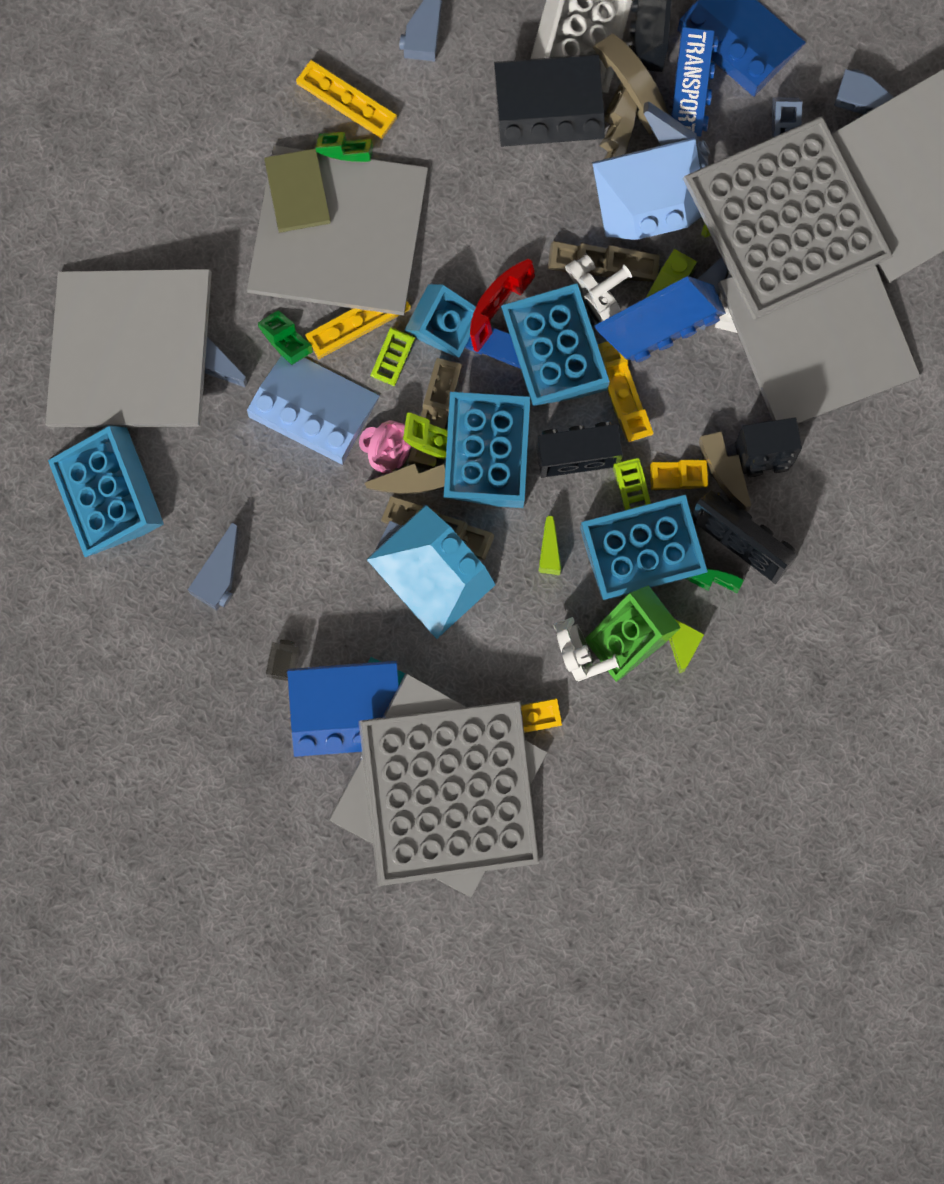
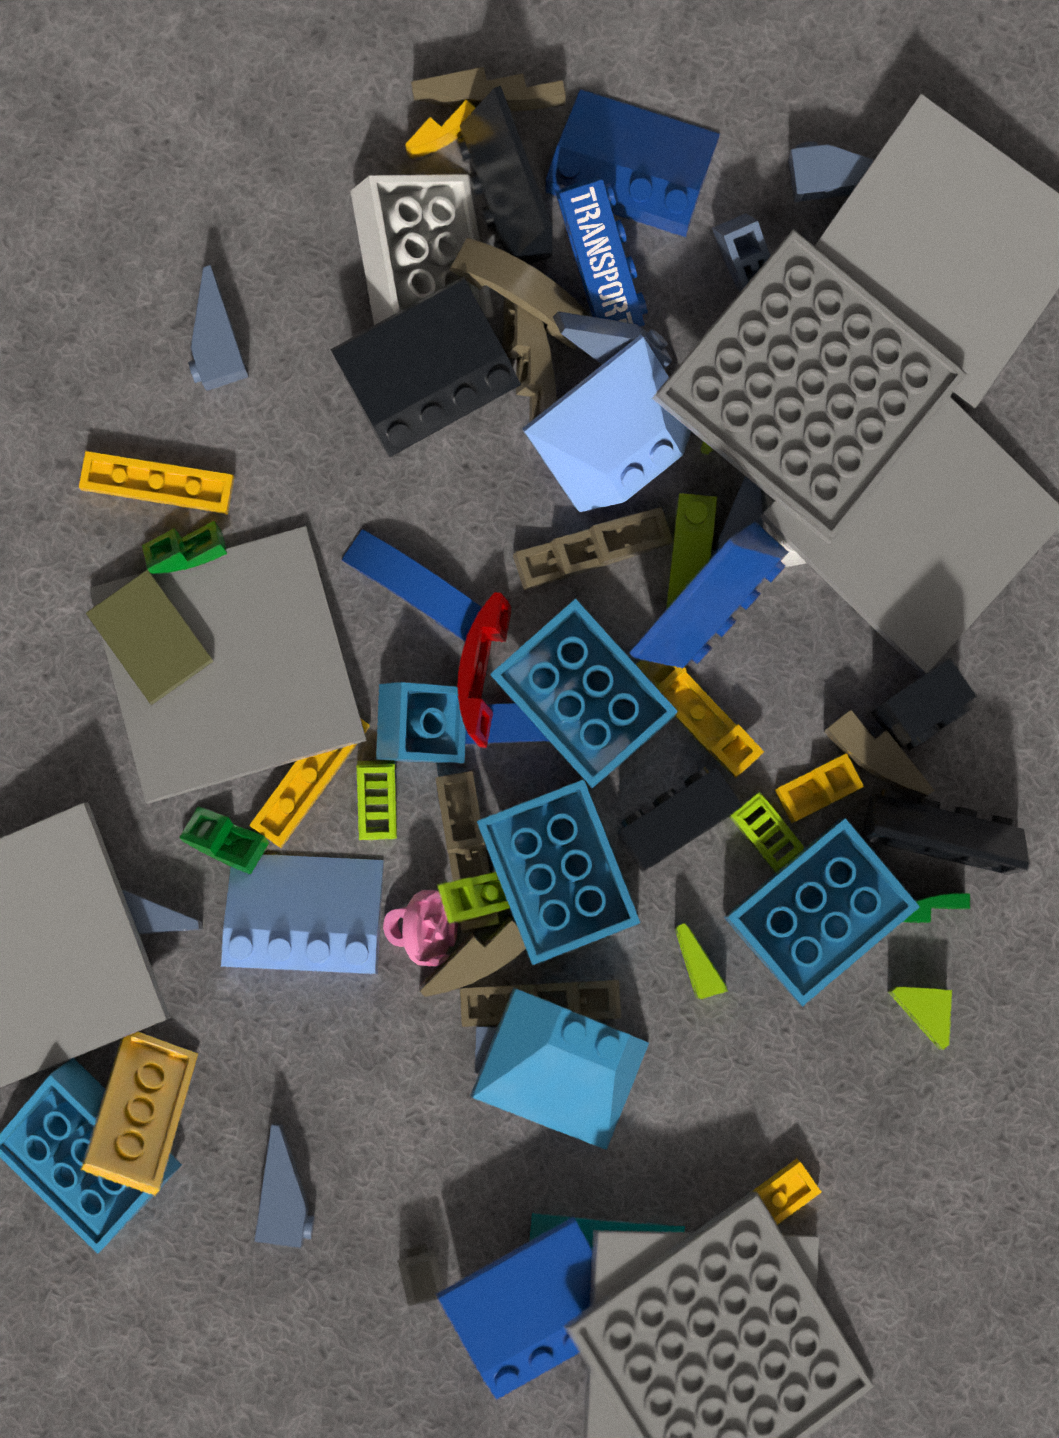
camera: 20 degrees left, 5 degrees up
(154, 474) = (140, 1112): none -> yellow plate
(478, 232) = (412, 583): none -> blue slope
(576, 652) = (798, 1089): white piece -> none
(596, 296) = (607, 604): white piece -> none
(632, 631) = (858, 1030): bright green slope -> none

